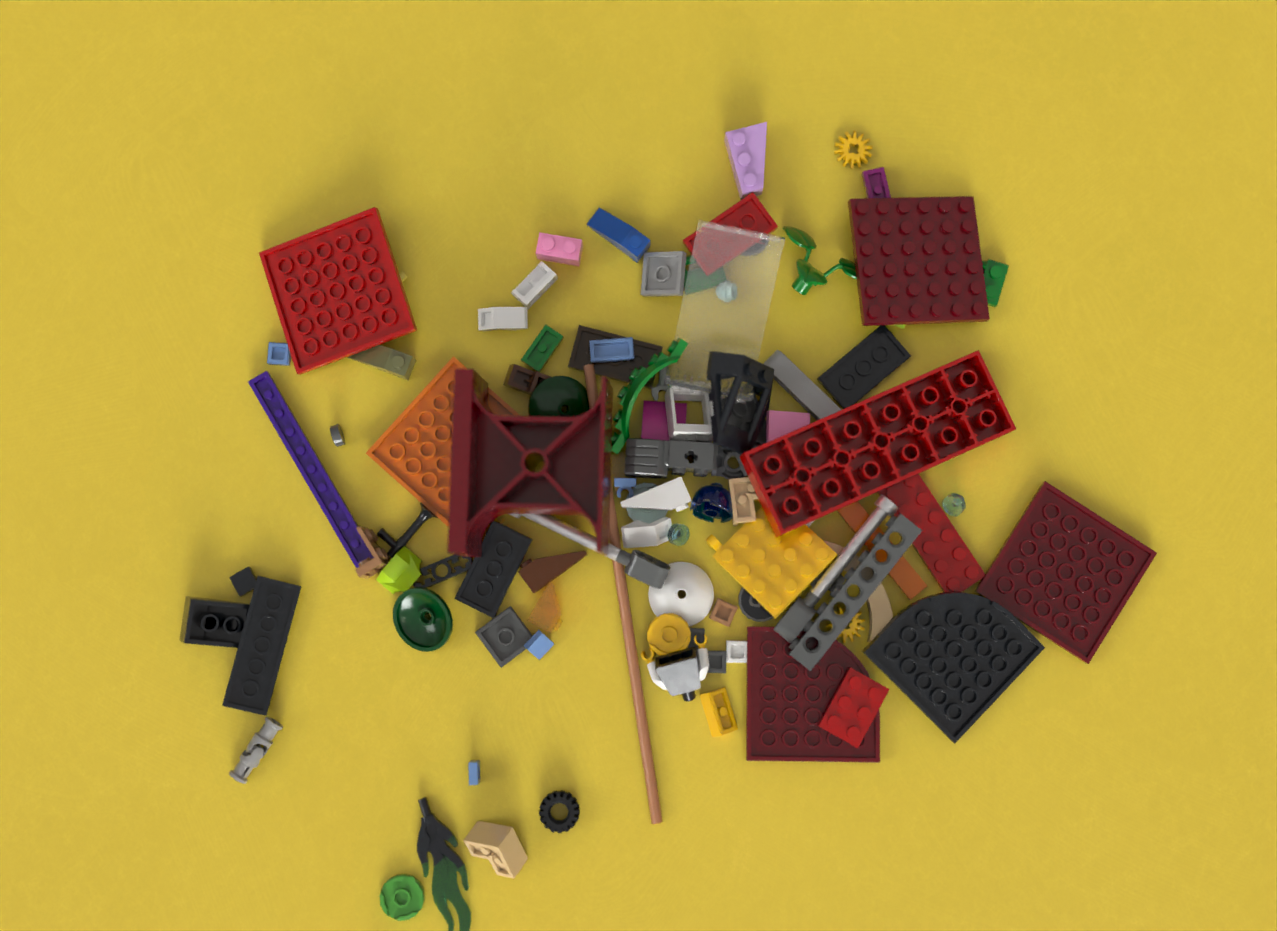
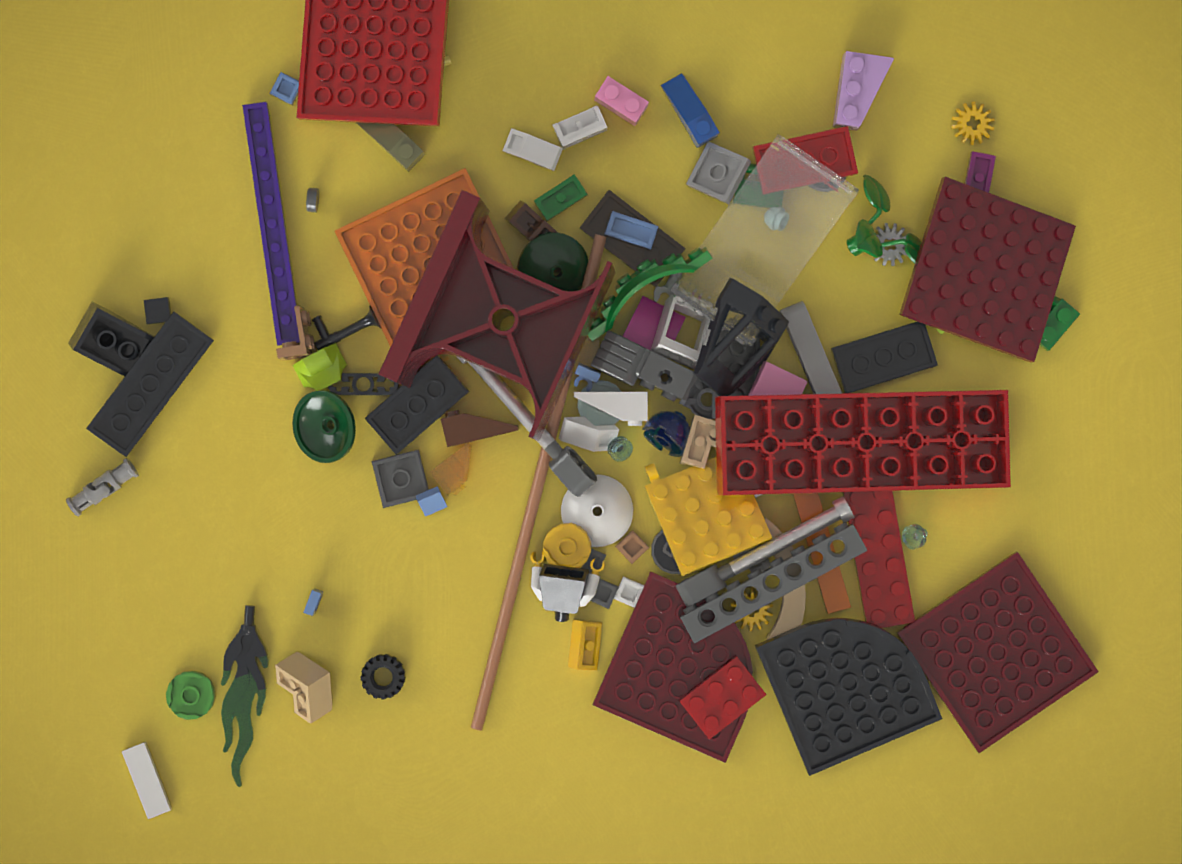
camera: 20 degrees right, 5 degrees up
(832, 282) = (889, 234): none -> light grey gear

